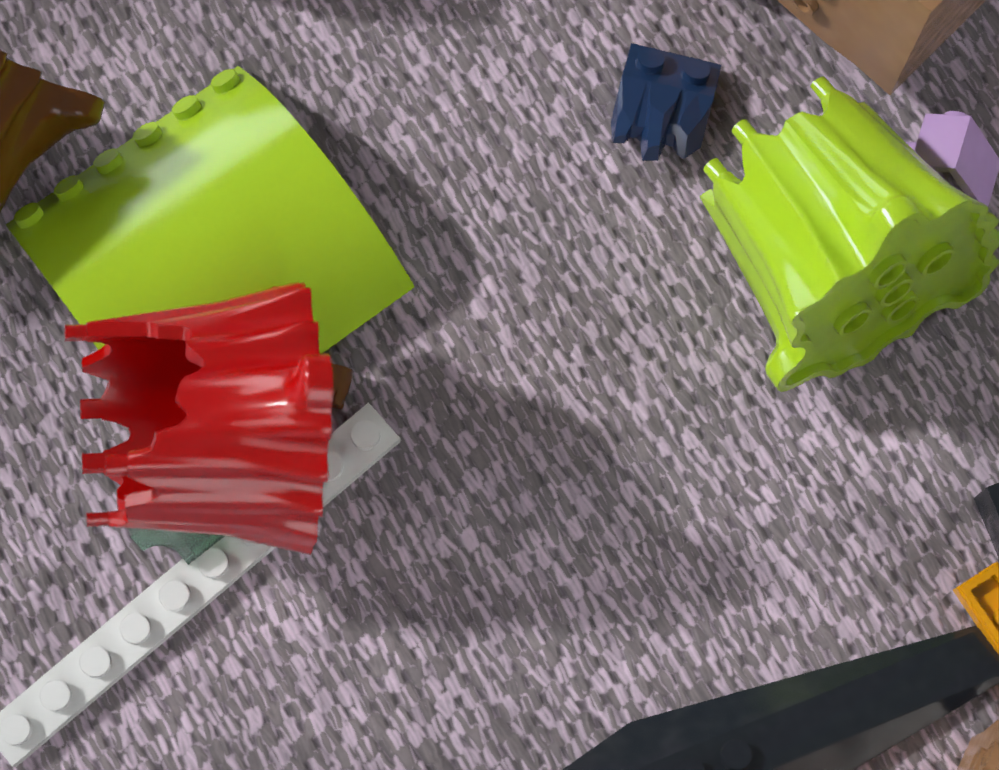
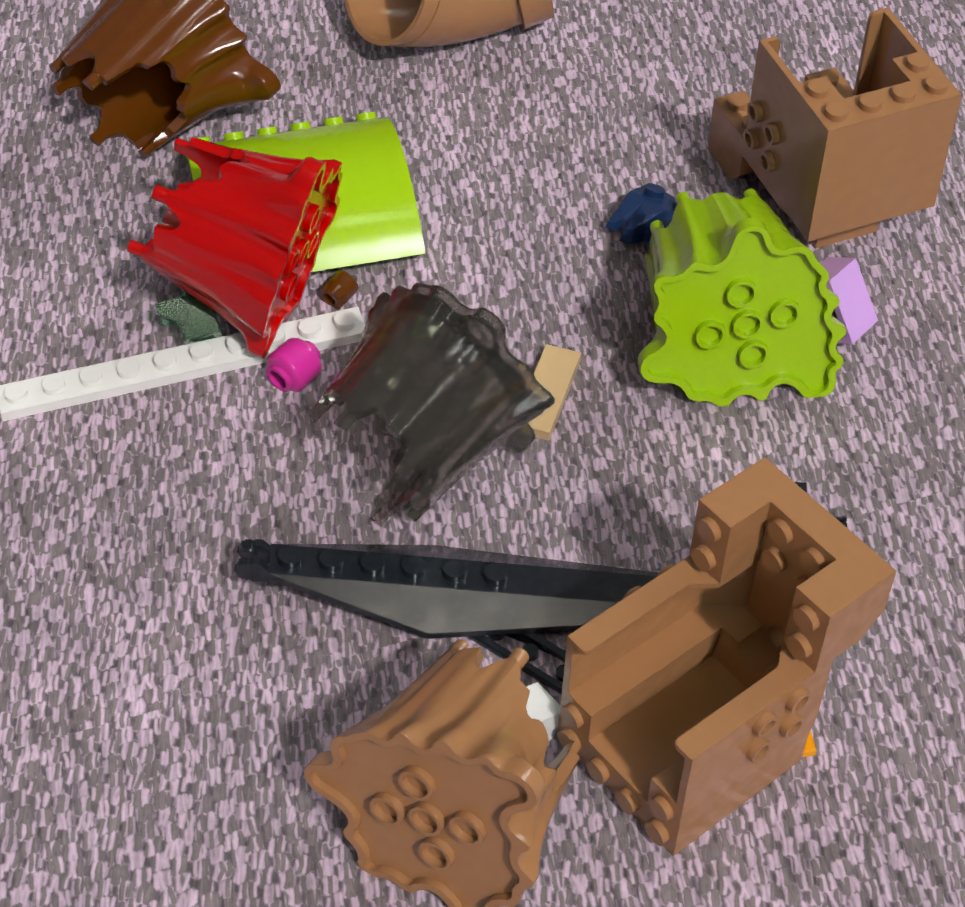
camera: 25 degrees right, 25 degrees down
(341, 533) = (293, 365): none -> dark pink head
(559, 579) = (439, 390): none -> clear smoke piece
(657, 434) = (555, 373): none -> tan tile

